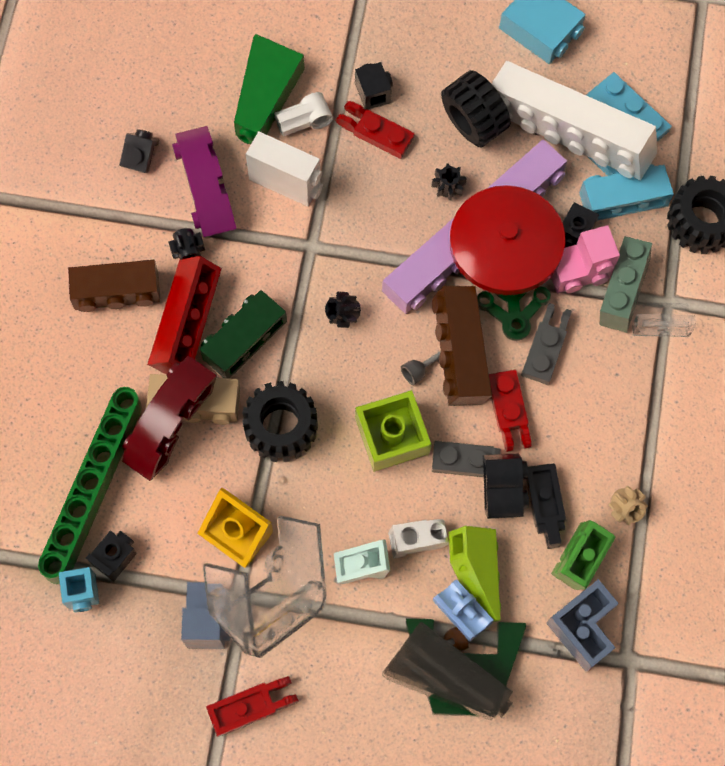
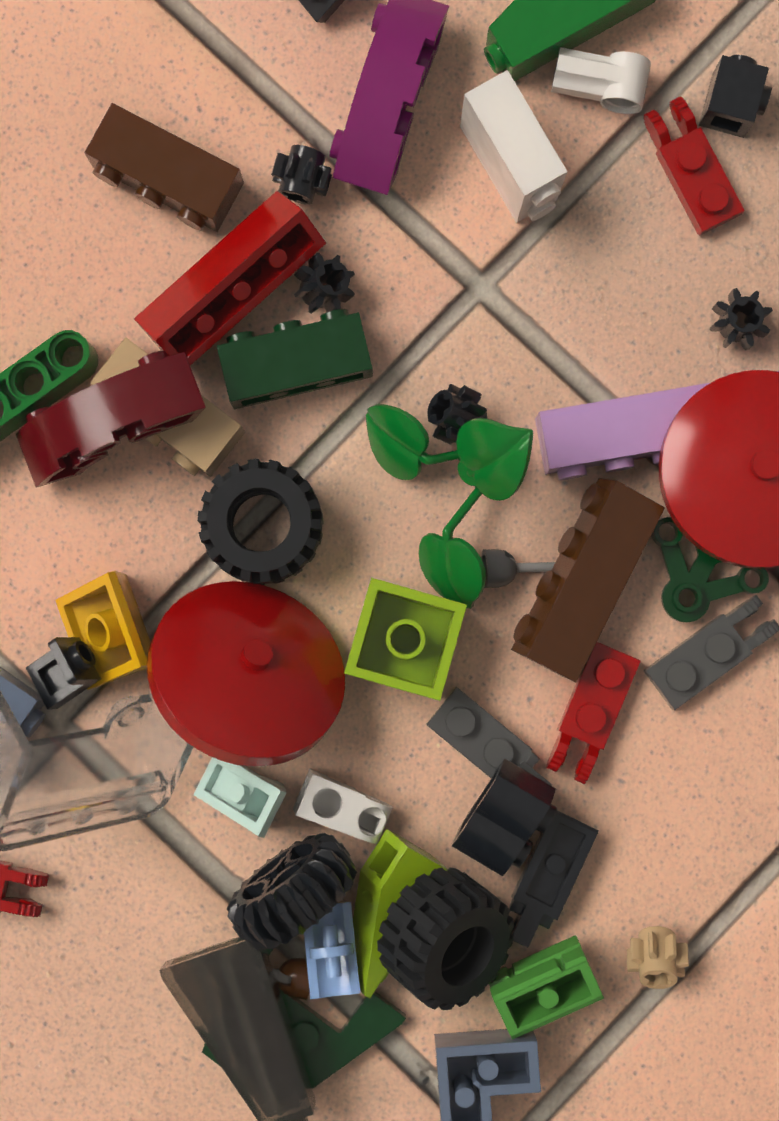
camera: 35 degrees right, 15 degrees up
(229, 554) = (63, 671): none -> black bracket
(233, 289) = (321, 272): none -> black gear
(324, 495) = (245, 673): none -> red dish
(378, 309) = (490, 458): none -> green plant
(422, 587) = (292, 891): none -> black gear
(516, 560) = (445, 938): none -> black tyre

